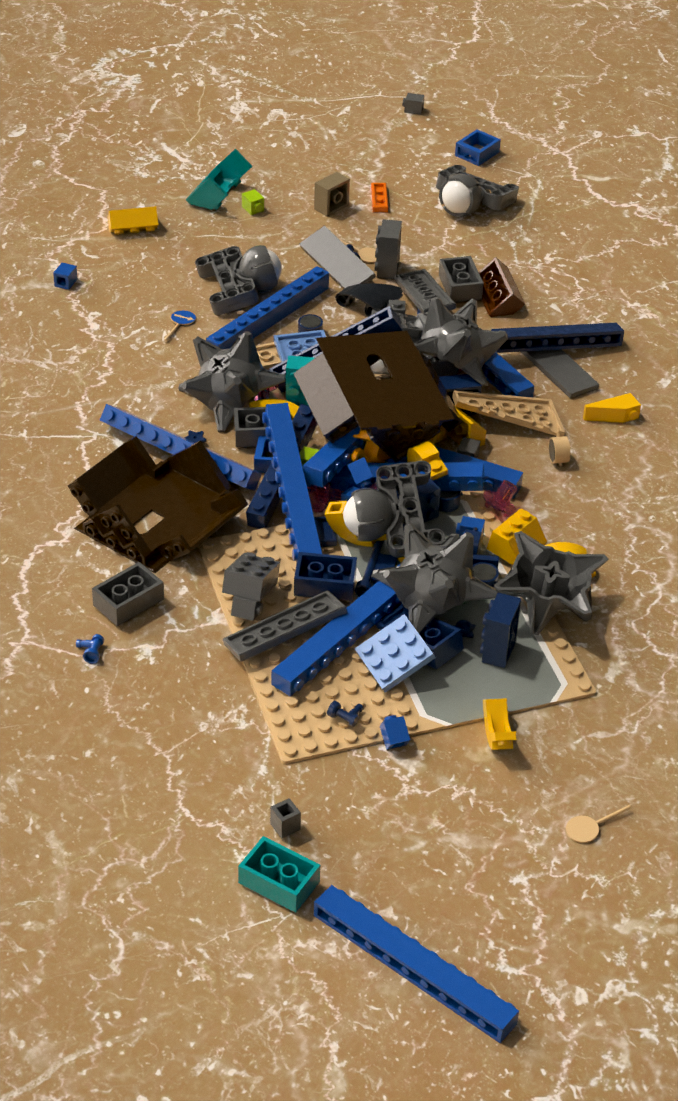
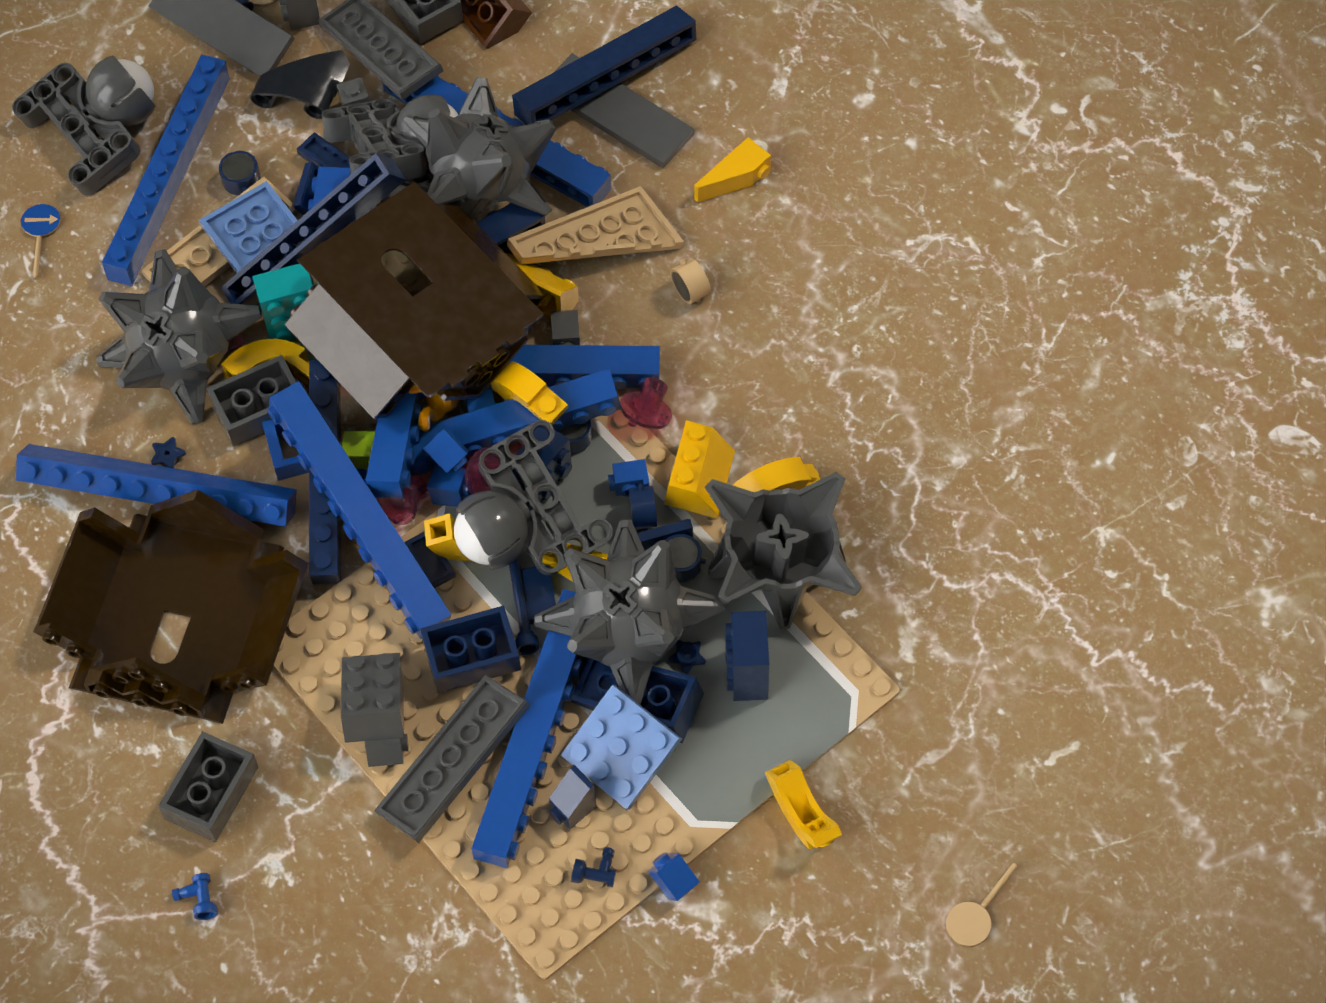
camera: 20 degrees left, 20 degrees up
(350, 668) = (572, 798): none -> slope

